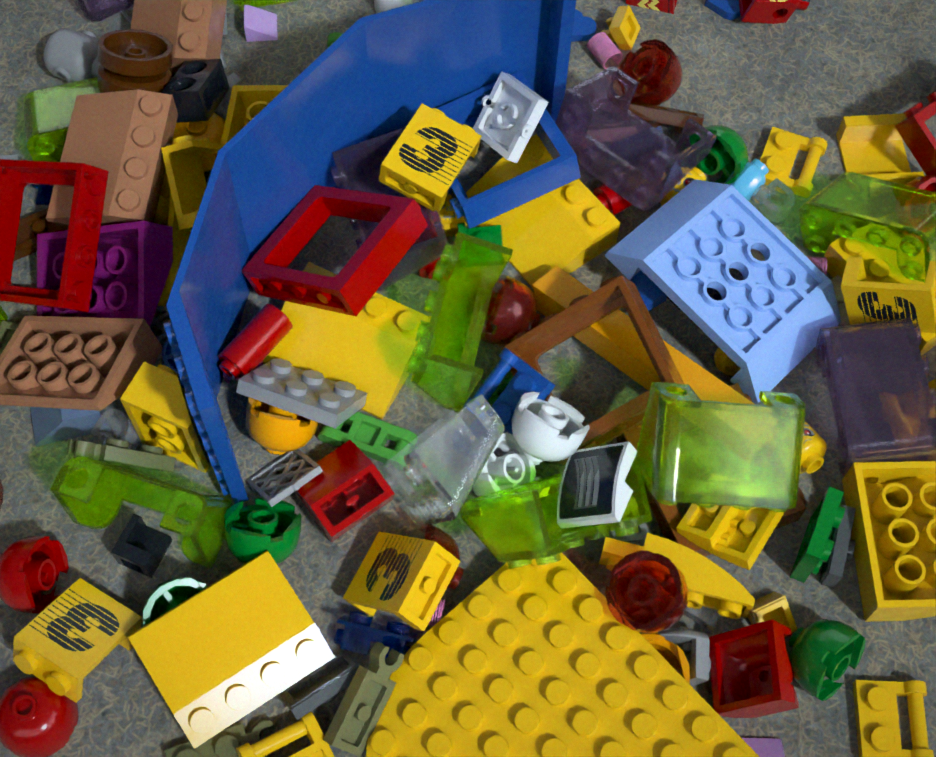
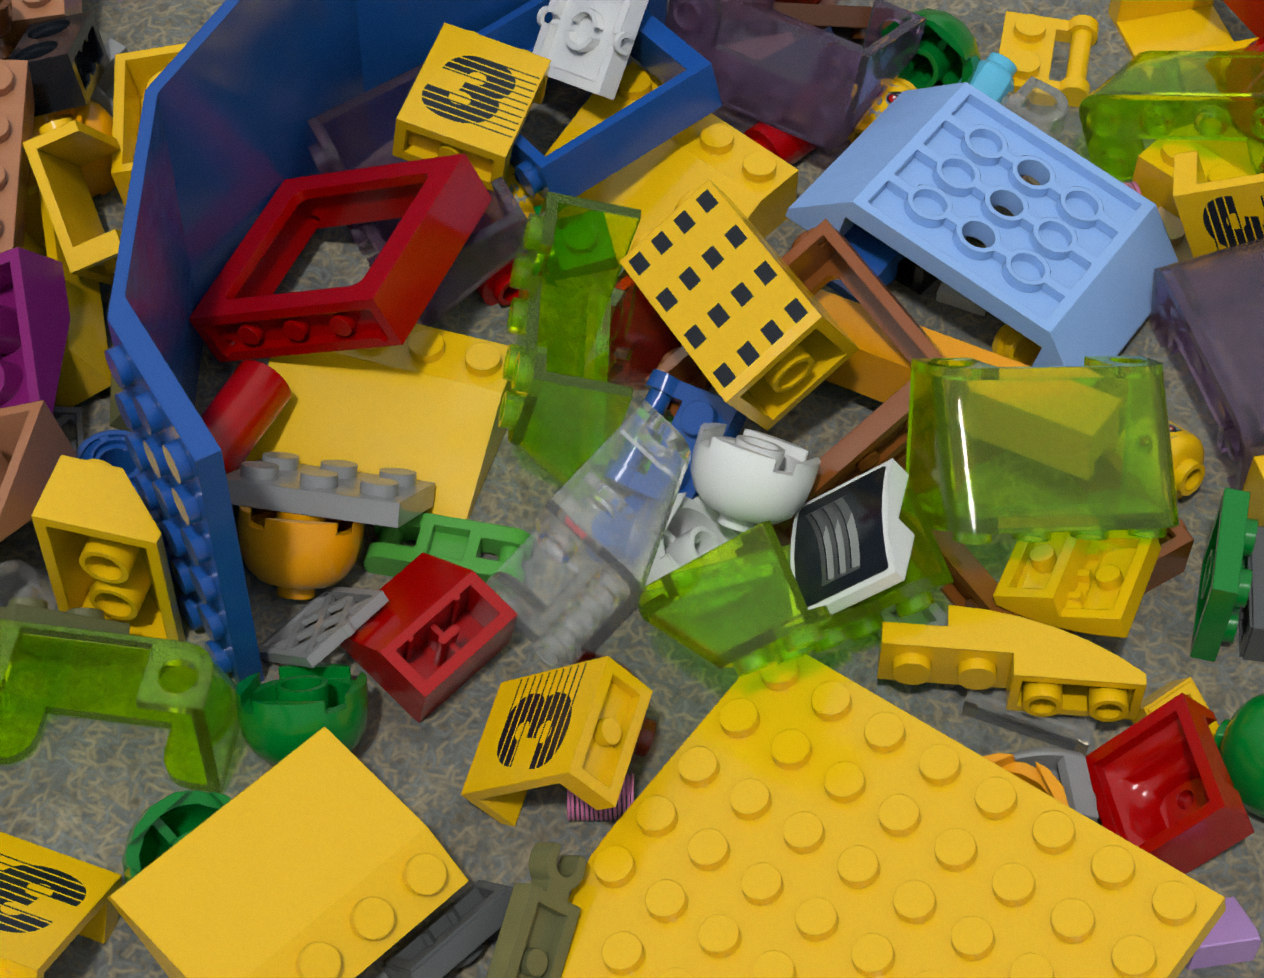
camera: 10 degrees left, 10 degrees down
(141, 547) = (93, 779): black panel -> none
(361, 630) = (502, 845): clear blue hinge -> none
(557, 322) = (736, 306): none -> yellow slope
(647, 592) = (972, 684): clear red cylinder -> none

